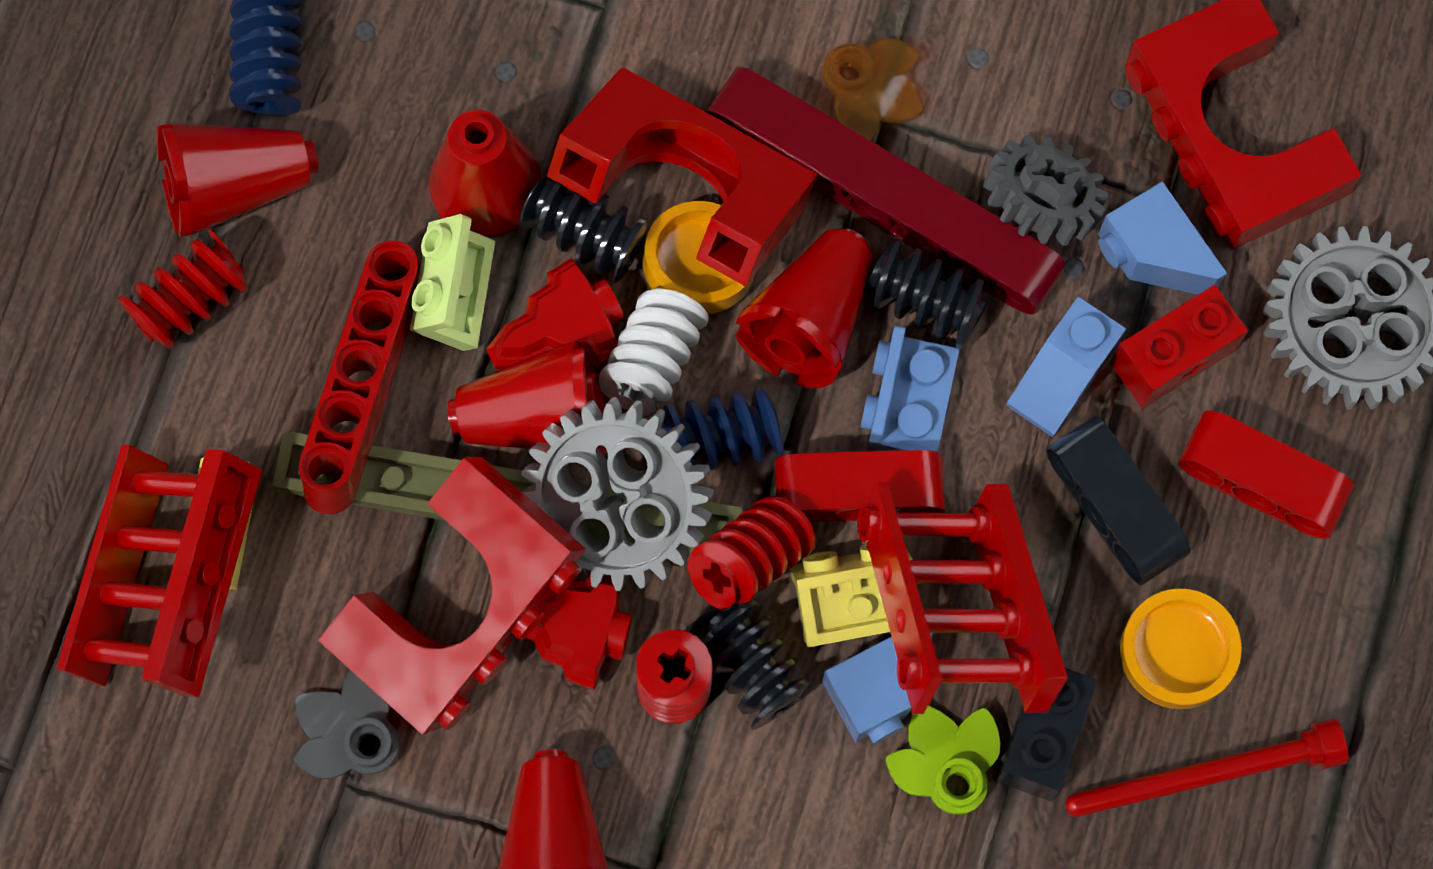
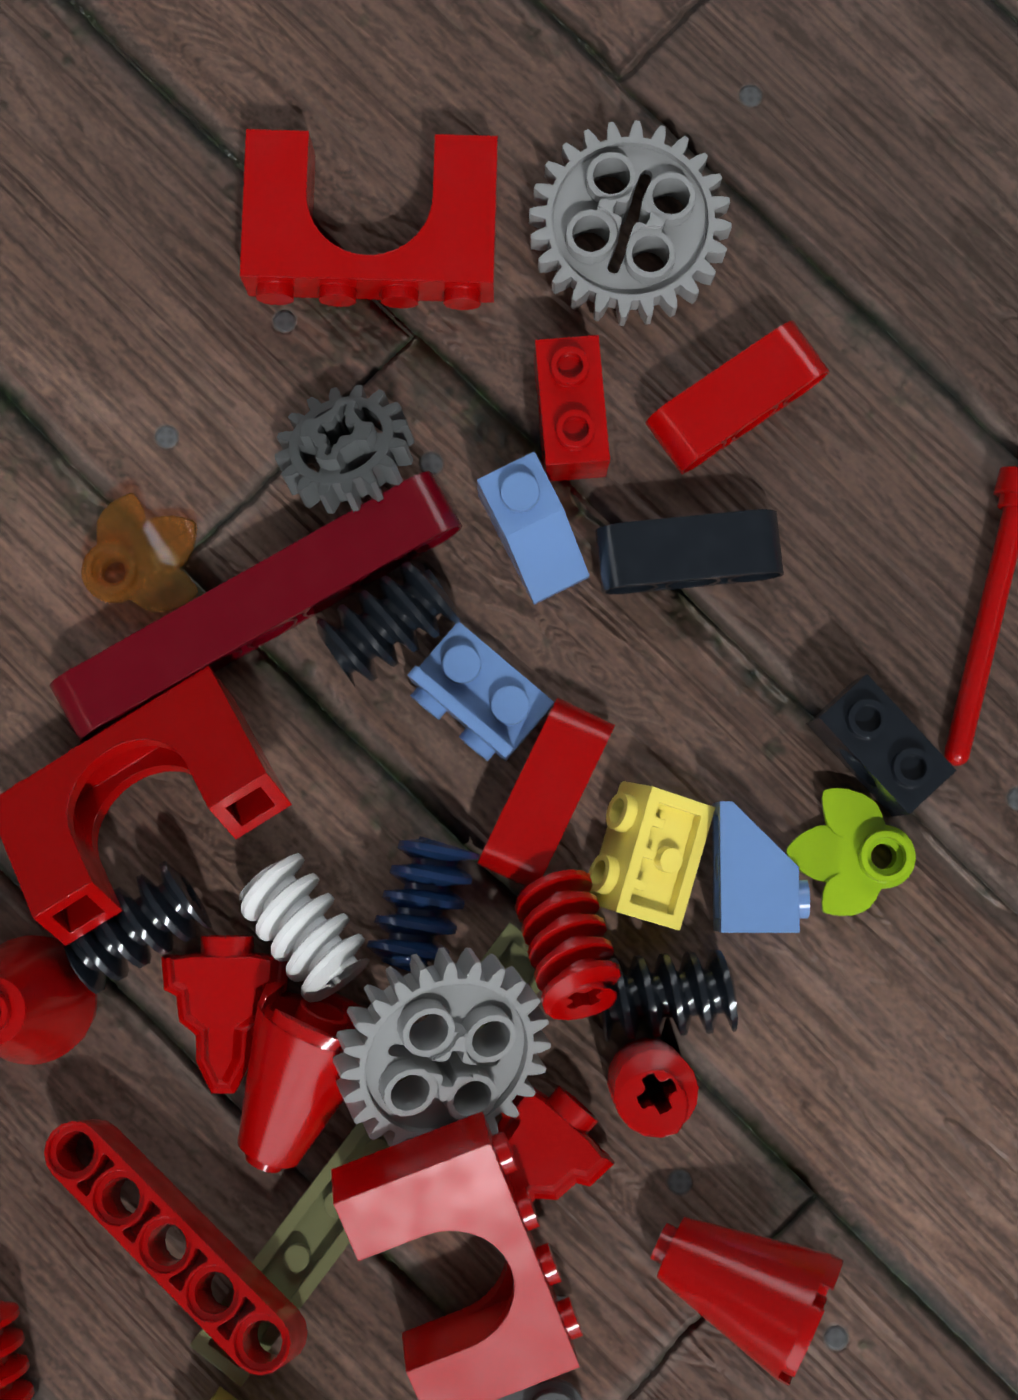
camera: 60 degrees left, 10 degrees up
(452, 283) = (124, 1094): yellowish green bracket -> none
(672, 260) = (210, 853): light orange piece -> none
(809, 310) = (343, 746): red cone -> none
(1003, 569) = (715, 704): red fence -> none
(1159, 244) = (457, 368): medium blue slope -> none
(1180, 648) = (862, 573): light orange piece -> none

